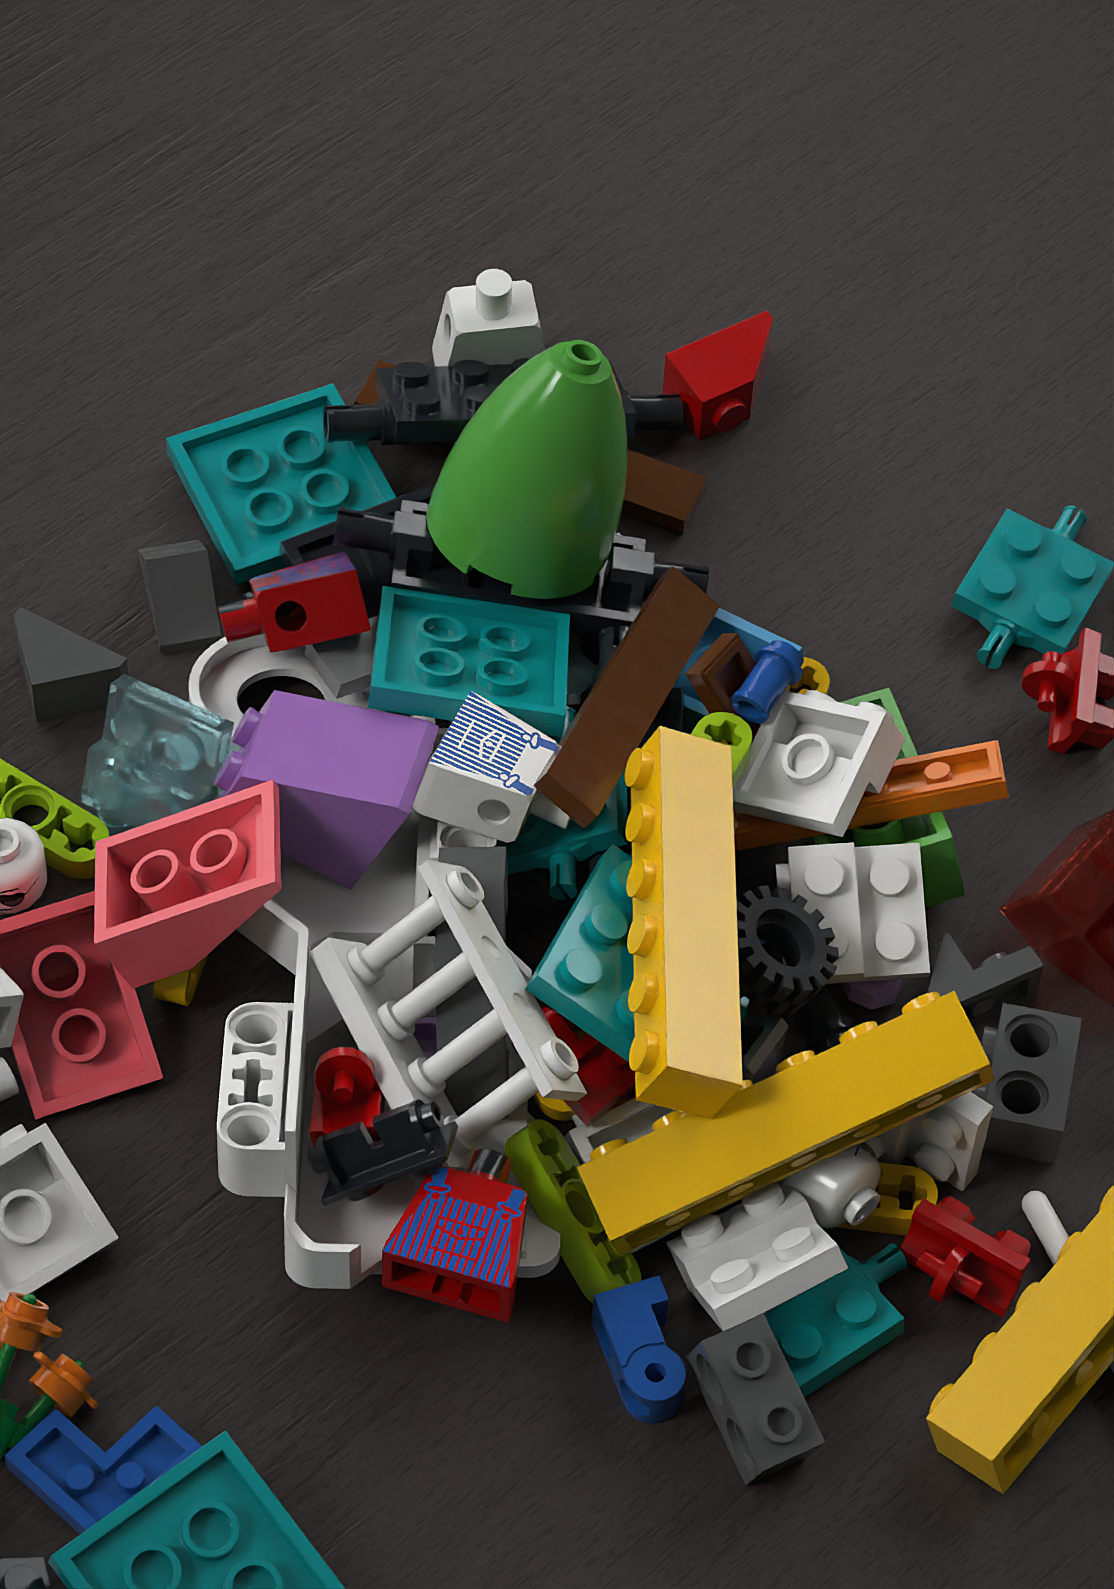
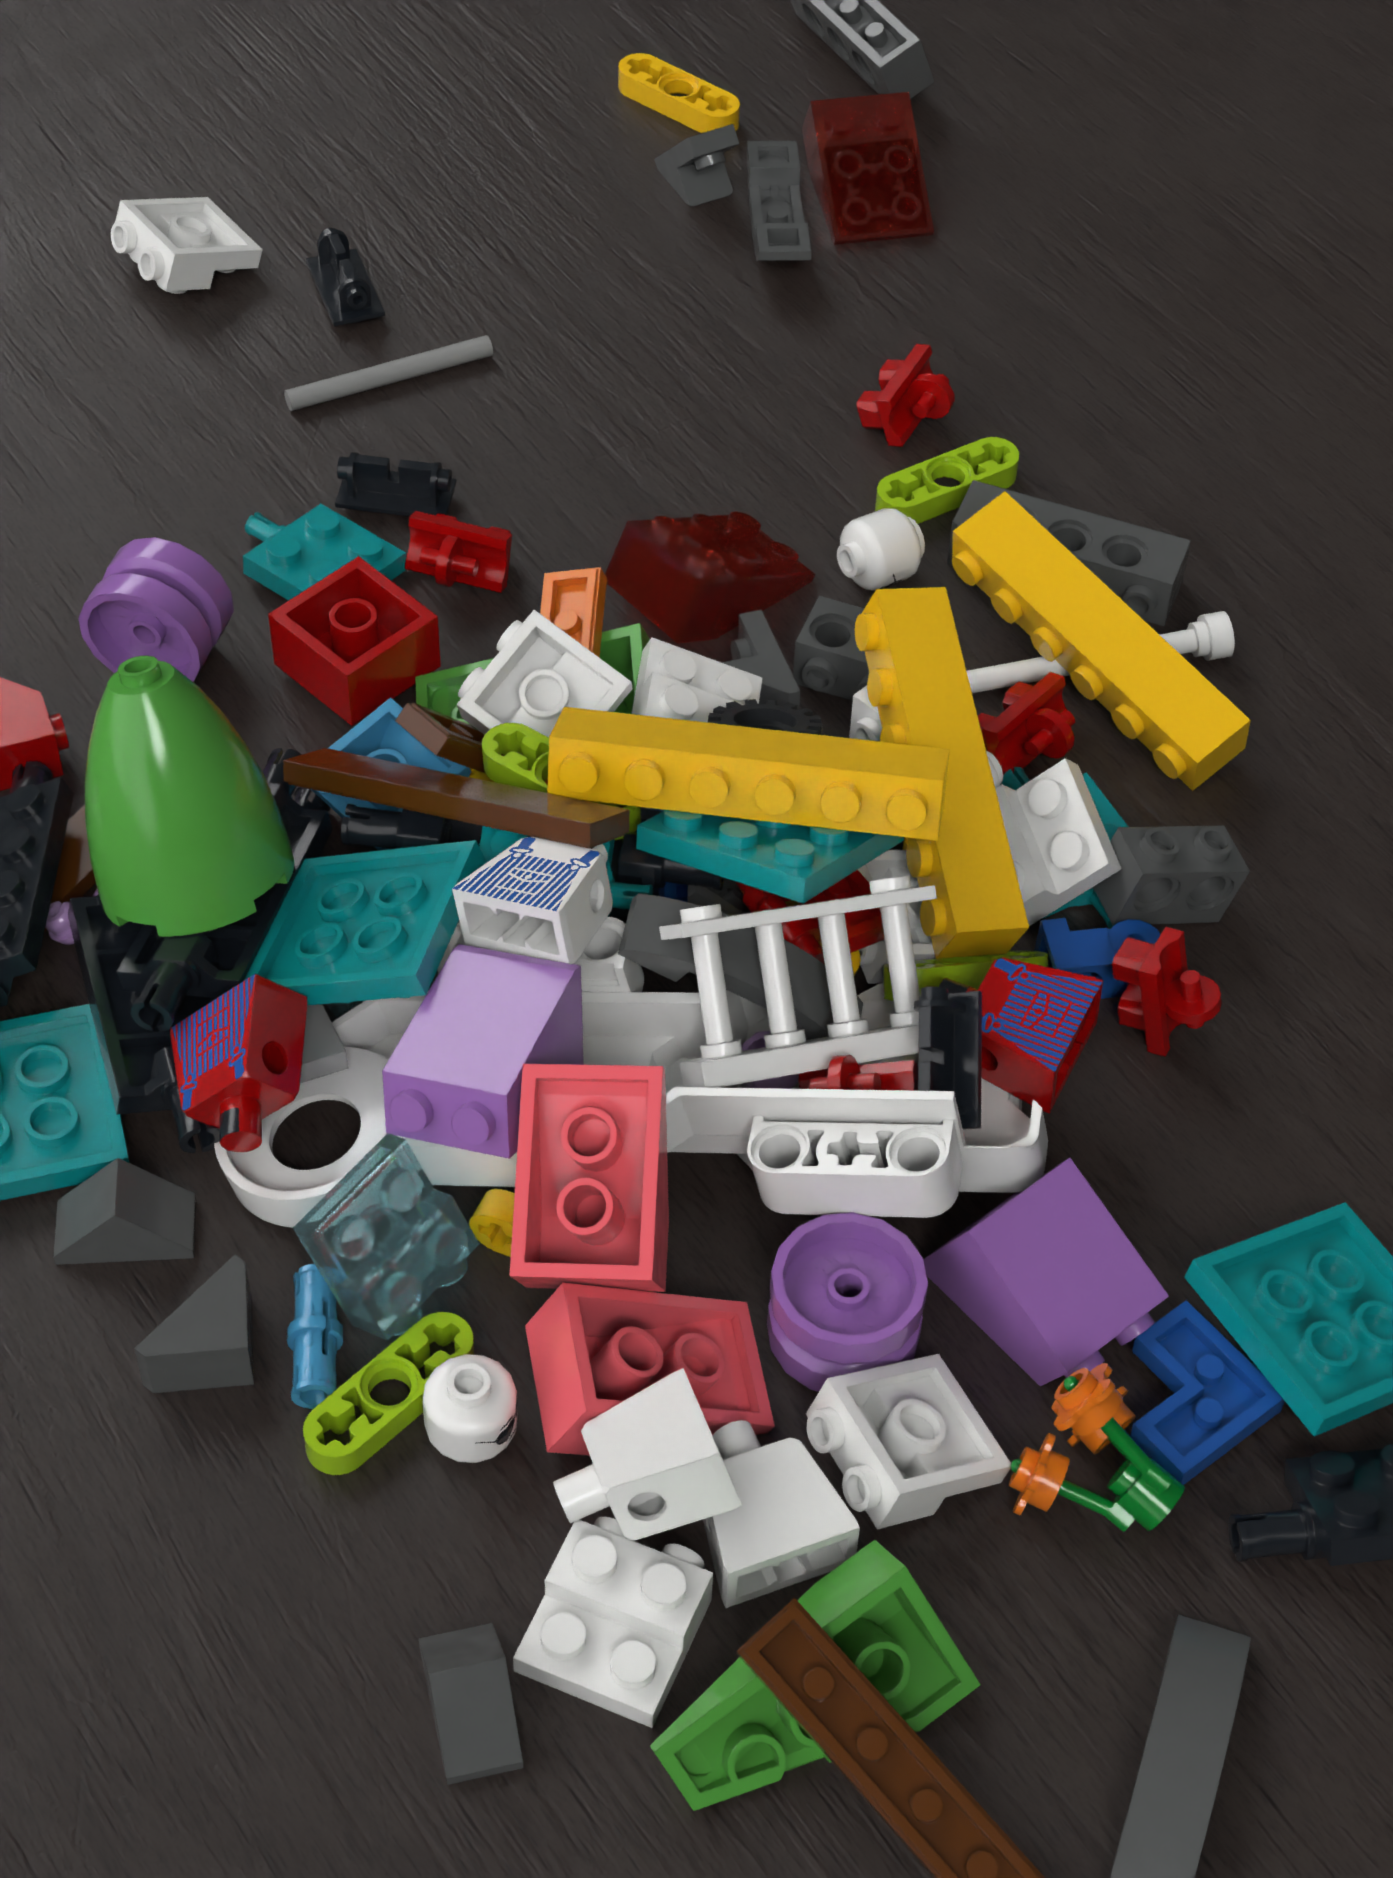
camera: 80 degrees left, 5 degrees down
(34, 755) = (313, 1338): none -> dark azure pin
(148, 1143) = (845, 1298): none -> medium lavender wheel
(209, 1319) = (1049, 1276): none -> medium lavender slope
(586, 1395) = (1162, 989): none -> red hips
(775, 669) = (453, 701): blue pin -> none
(880, 445) = (157, 604): none -> medium lavender wheel
(903, 618) = (354, 640): none -> red brick

